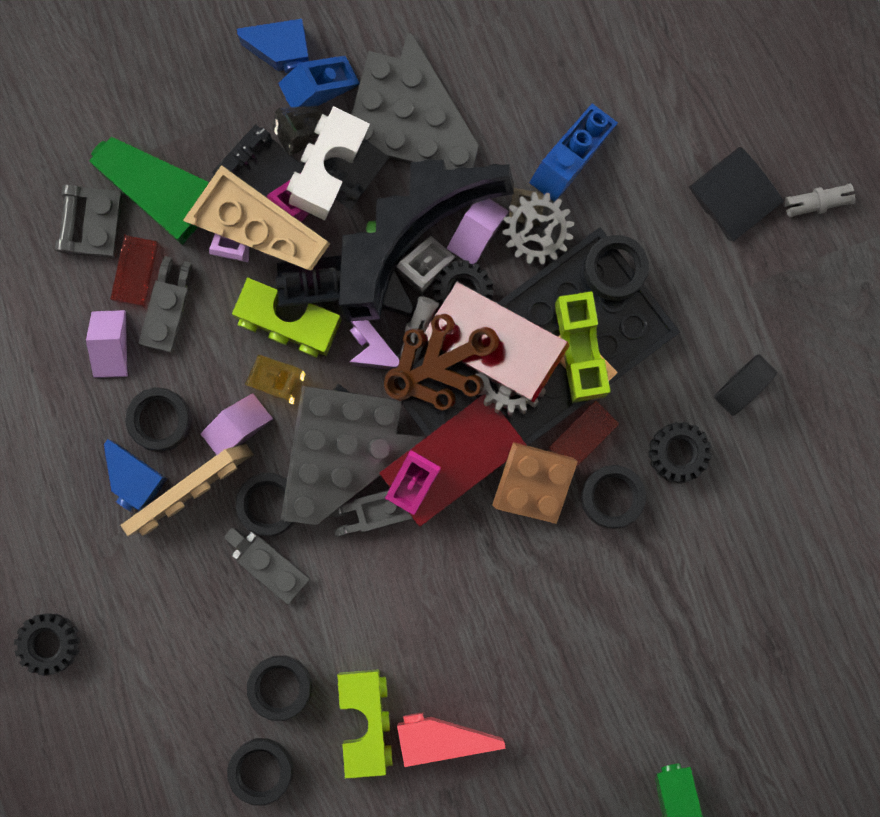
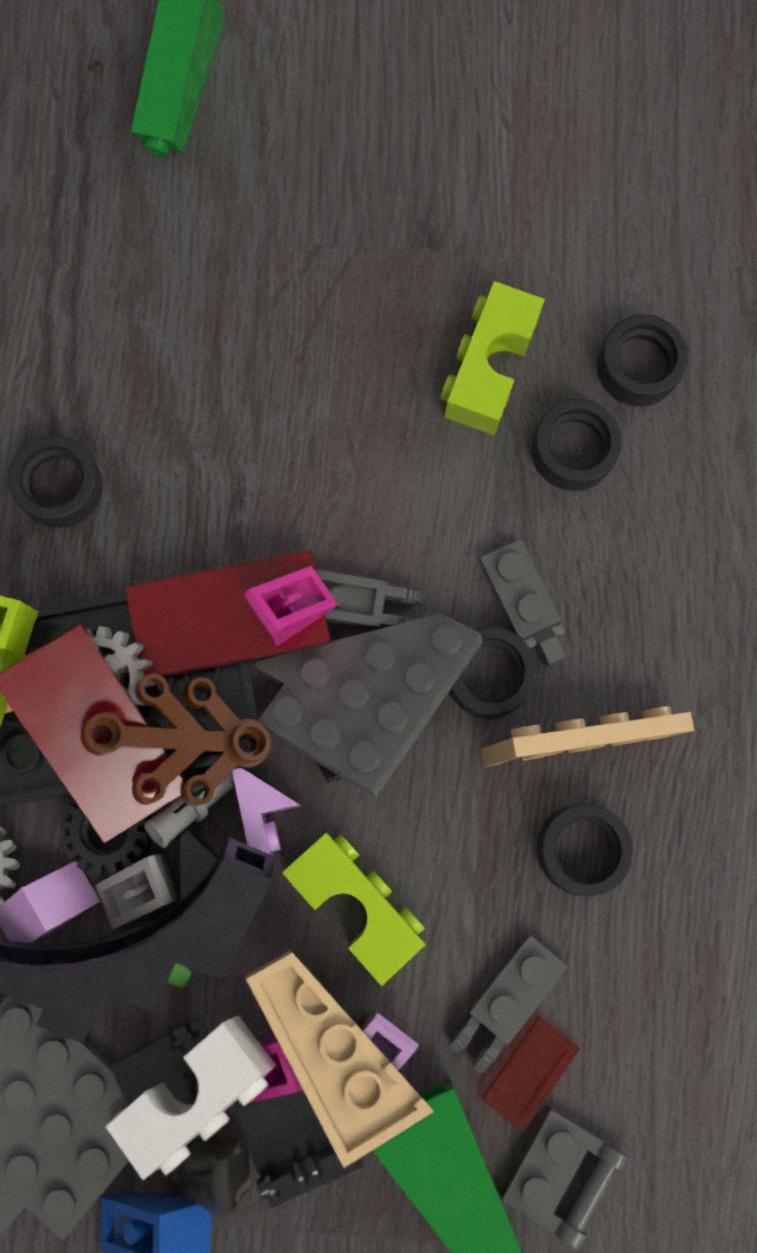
camera: 155 degrees left, 5 degrees down
(107, 344) = (609, 988): lavender slope -> none
(131, 478) = (653, 790): blue slope -> none
(236, 424) = (485, 794): lavender slope -> none
(275, 378) = (408, 831): clear yellow slope -> none
(303, 286) = (310, 933): black hinge -> none
(436, 740) = (411, 297): coral slope -> none
(534, 483) = (141, 539): medium nougat plate -> none
(585, 433) = (54, 573): clear red tile -> none

